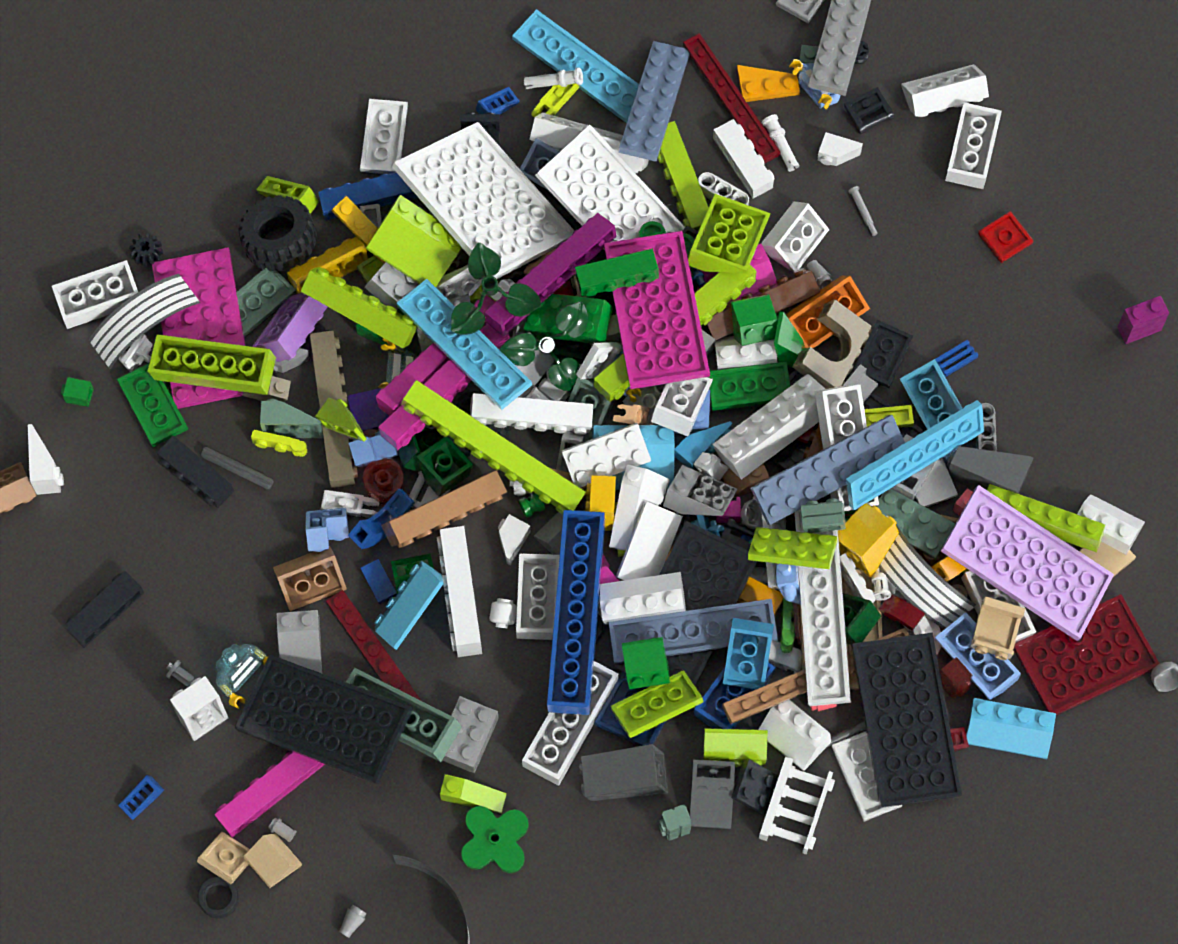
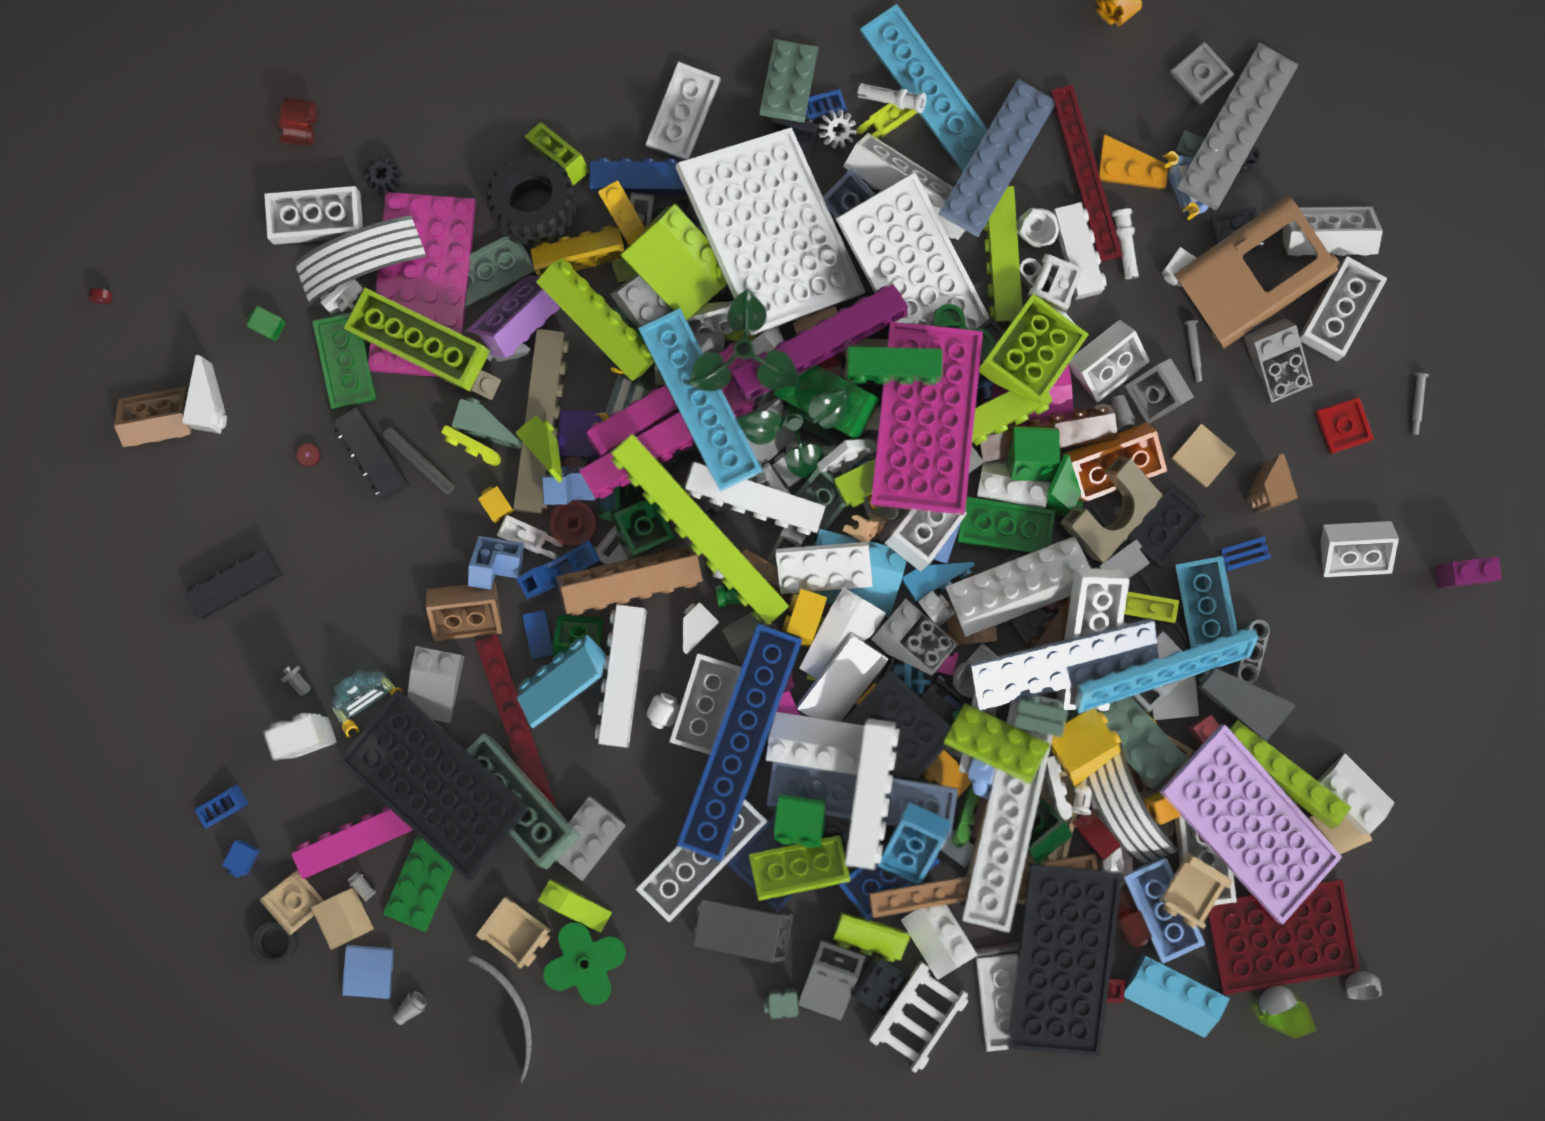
camera: 10 degrees right, 15 degrees up
(64, 225) = (297, 121): none -> clear red brick
(141, 488) = (308, 455): none -> dark red tile
(170, 834) = (240, 858): none -> blue brick
(307, 900) = (368, 971): none -> medium blue slope
(312, 484) = (495, 503): none -> yellow brick
(334, 811) = (419, 886): none -> green plate
(426, 832) = (514, 932): none -> tan panel
(465, 88) = (789, 81): none -> sand green plate
(511, 109) = (833, 122): none -> white gear
(699, 619) = (870, 795): none -> white brick
(704, 147) = (1038, 227): none -> white hair
(737, 184) = (1062, 285): none -> white plate
(843, 248) = (1159, 391): none -> light grey slope
(878, 156) = (1228, 290): none -> medium nougat piece
(897, 290) = (1203, 455): none -> tan tile
(935, 199) = (1279, 359): none -> light grey slope
(961, 295) = (1272, 486): none -> medium nougat slope
(1048, 328) = (1358, 548): none -> white slope
(1060, 201) = (1418, 401): none -> light grey piece
(1095, 706) = (1276, 1000): none -> light grey hair
(1115, 722) = (1292, 1022): none -> clear neon green slope

